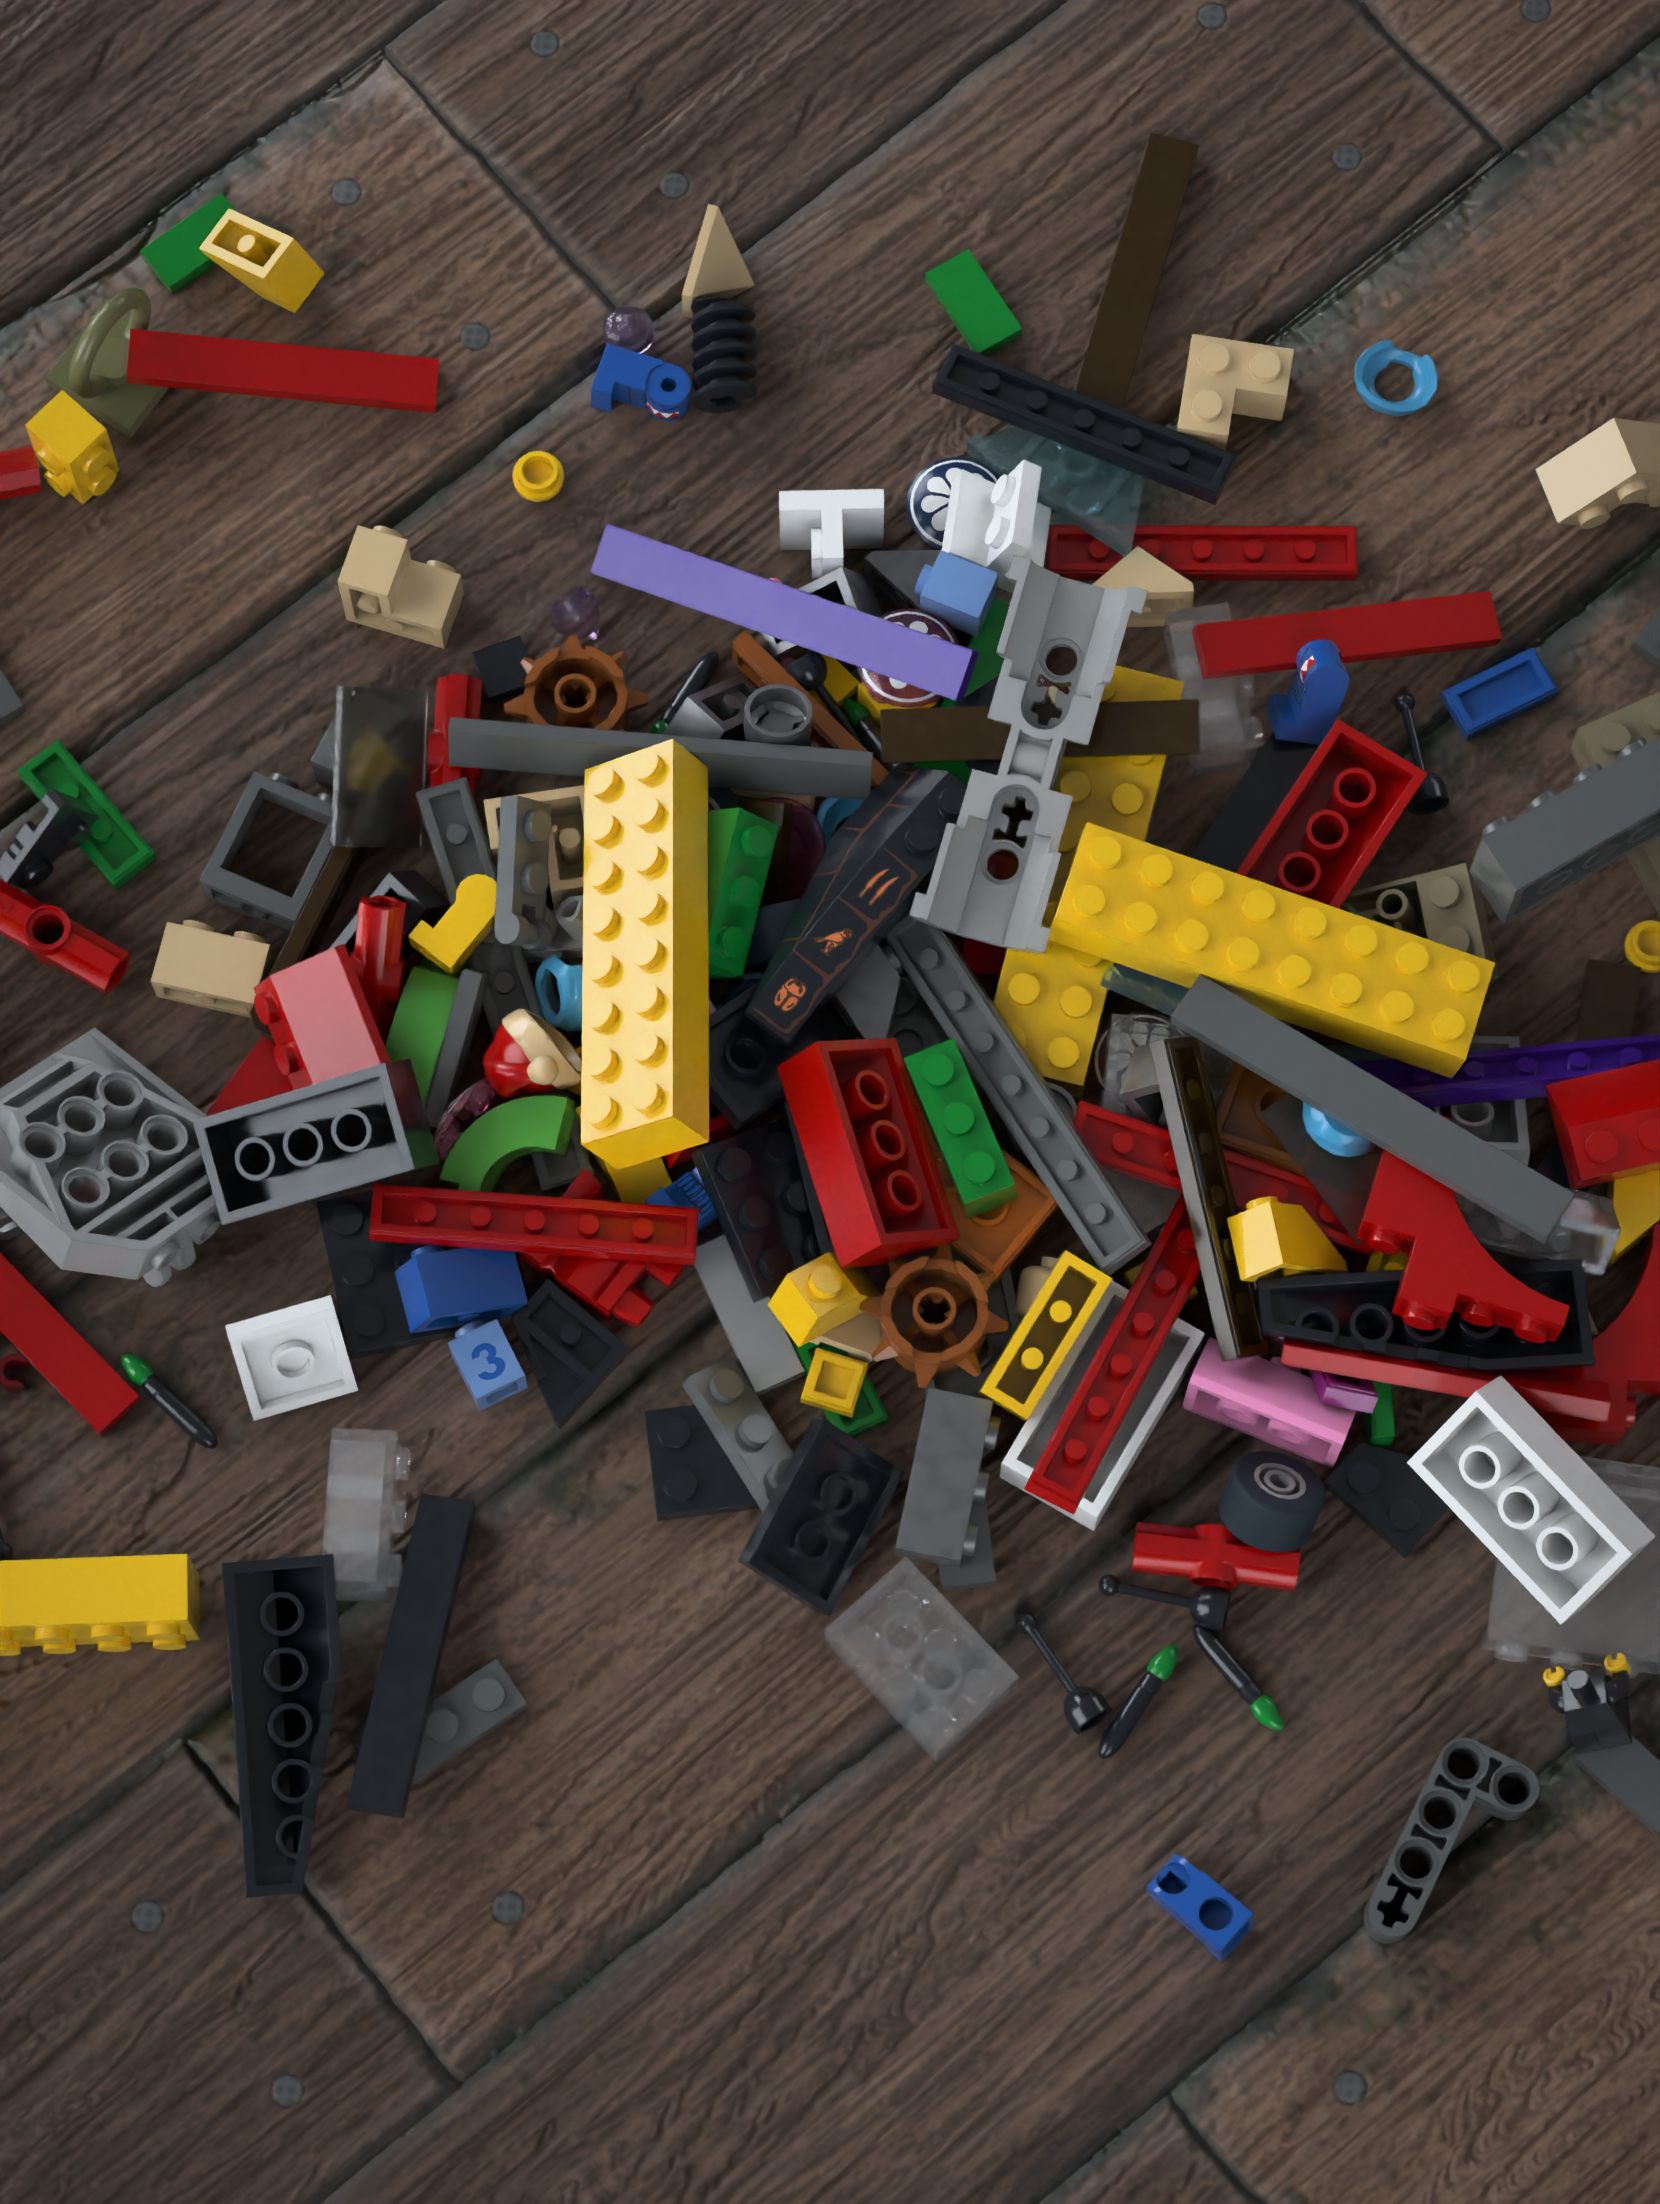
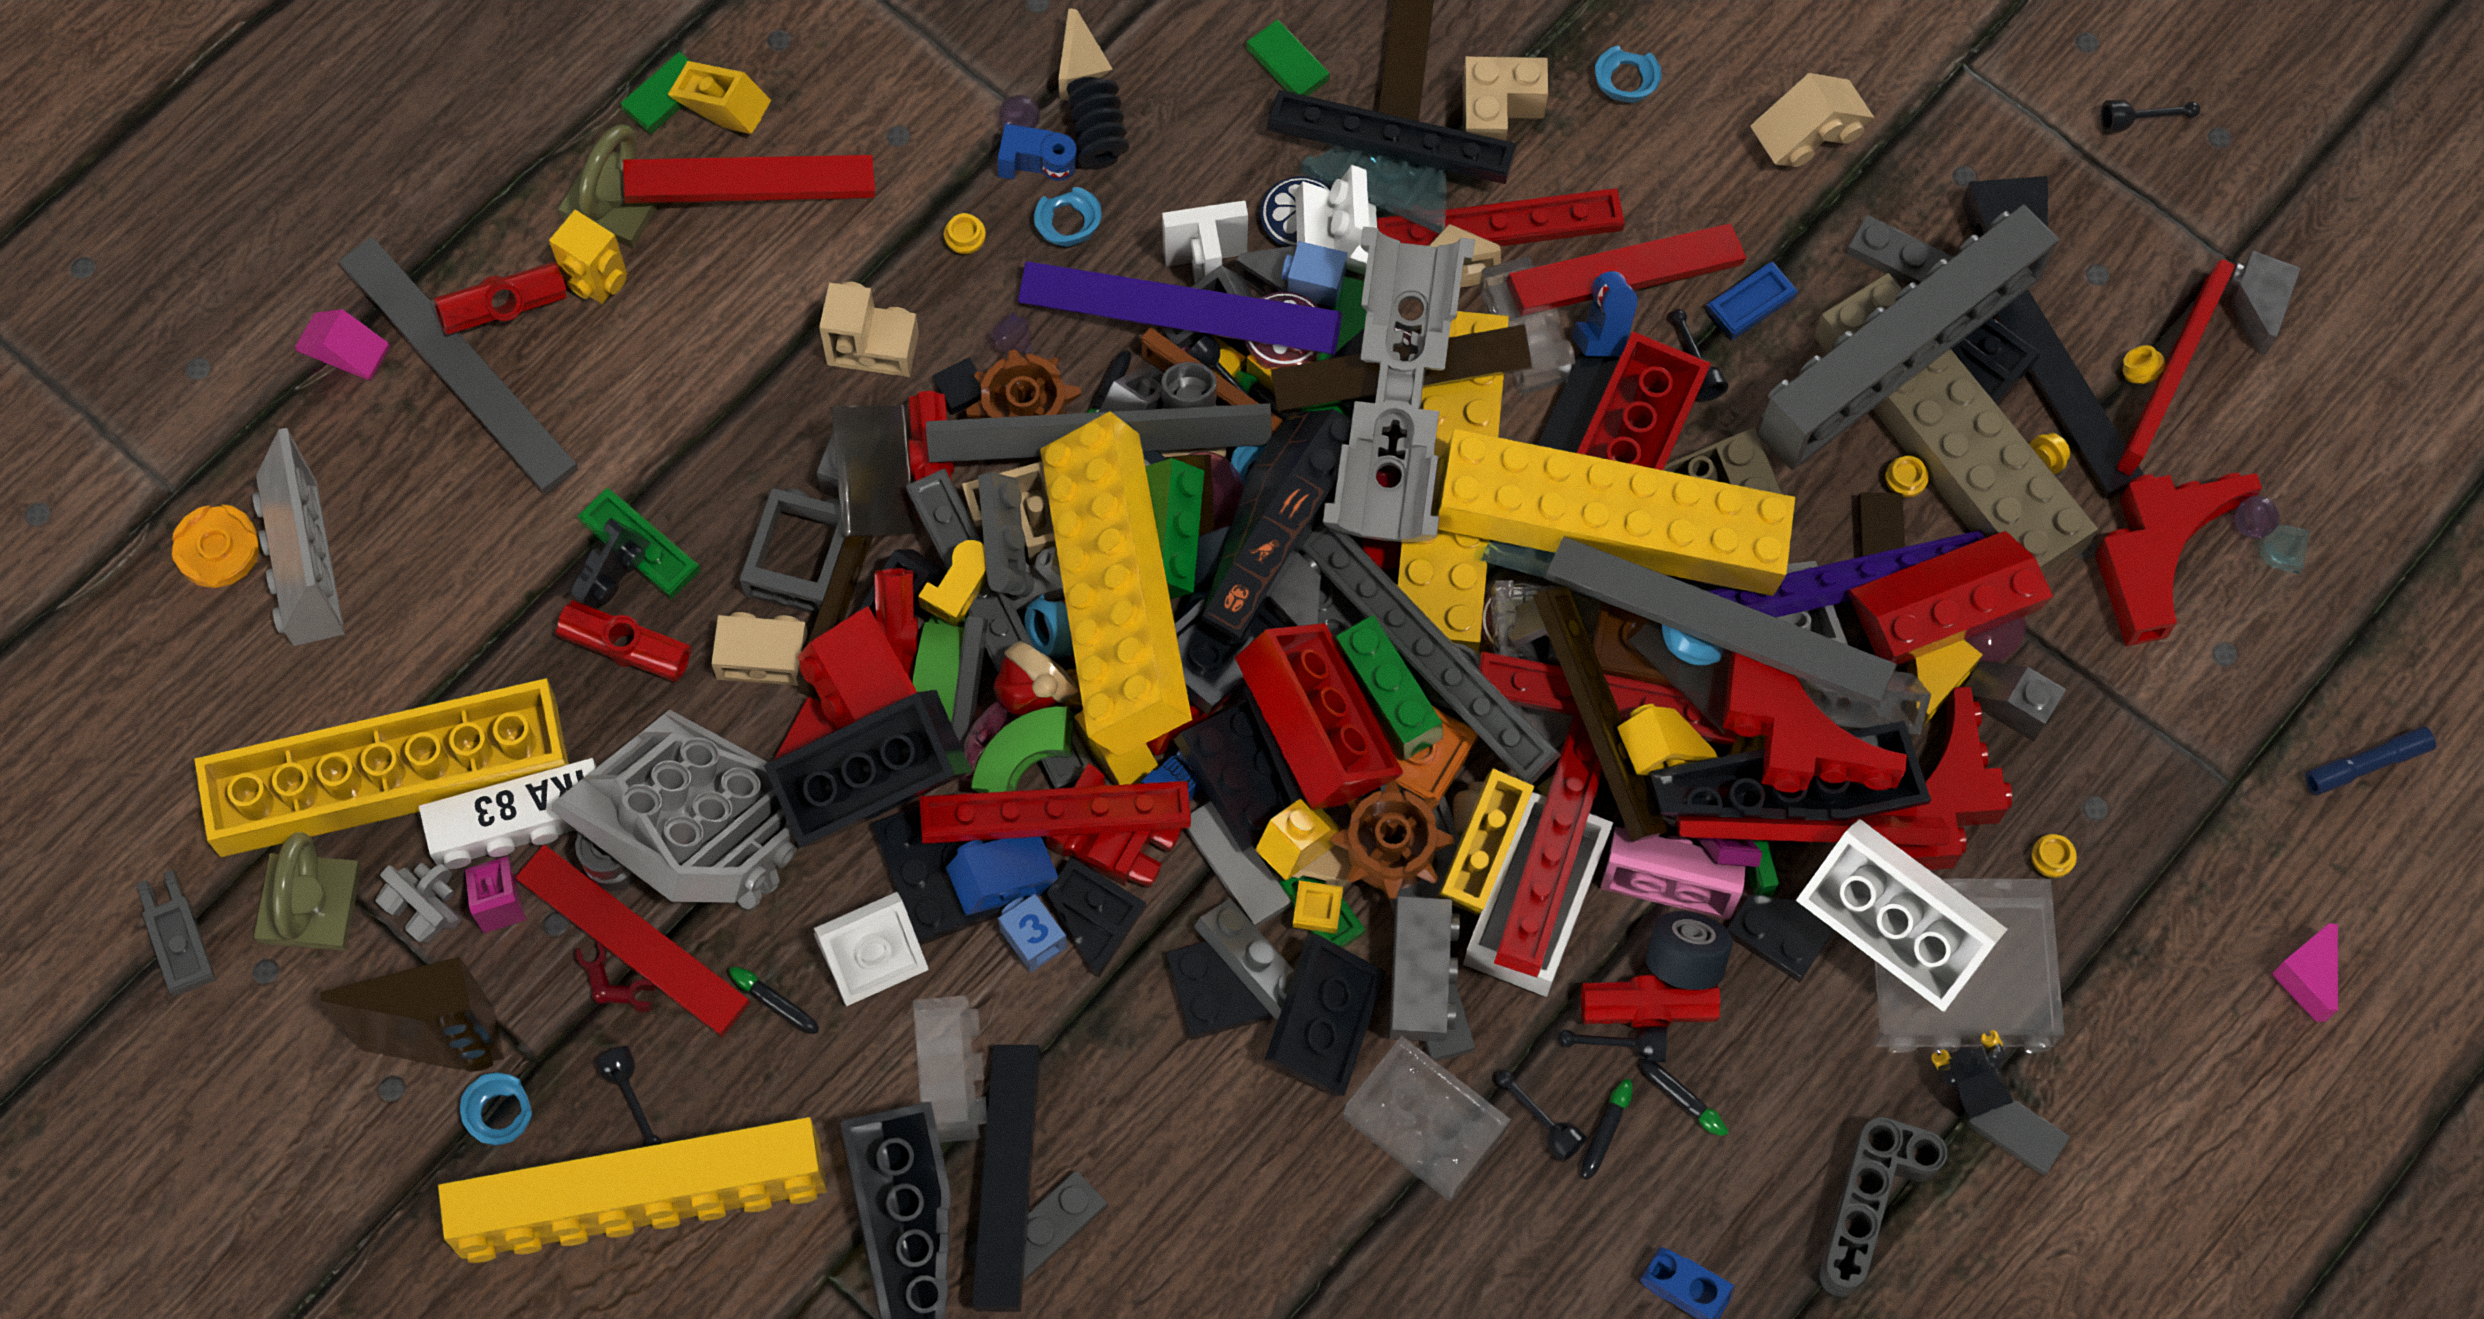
camera: 10 degrees left, 5 degrees down
(688, 453) = (1082, 202): none -> dark azure piece

